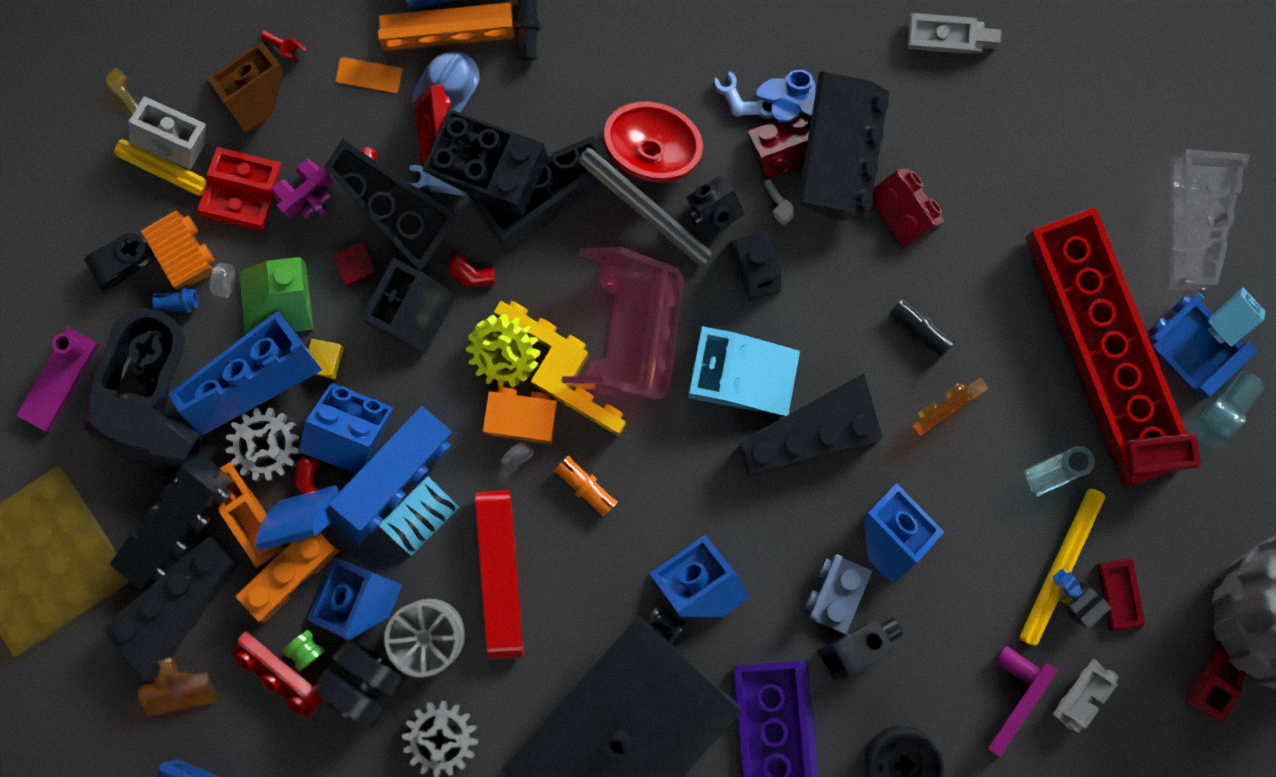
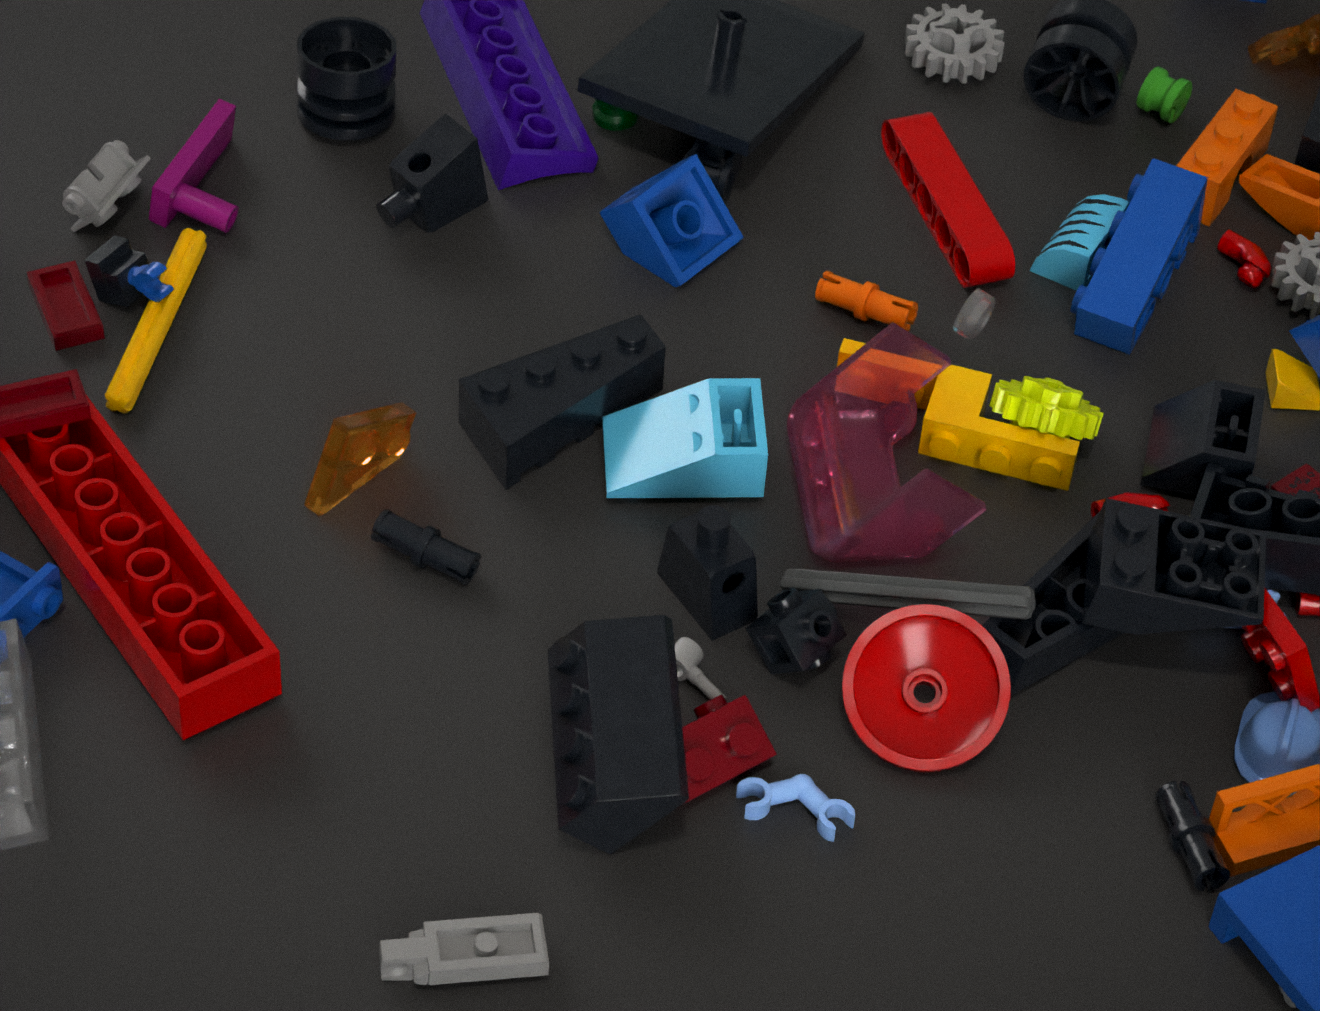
camera: 165 degrees right, 35 degrees down
(276, 676) = (1191, 65): red tile -> none
(296, 518) = (1242, 183): blue slope -> none
(345, 428) = (1224, 309): blue slope -> none
(352, 599) = (1119, 140): blue slope -> none
(424, 637) = (1017, 111): light grey wheel -> none
(520, 416) = (993, 344): orange brick -> none
(789, 95) = (724, 796): blue plate -> none
(838, 594) = (476, 248): sand blue bracket -> none
(898, 534) = (402, 309): blue slope -> none
(906, 206) = (484, 696): dark red bracket -> none
(1056, 471) = (164, 415): clear light blue piece -> none

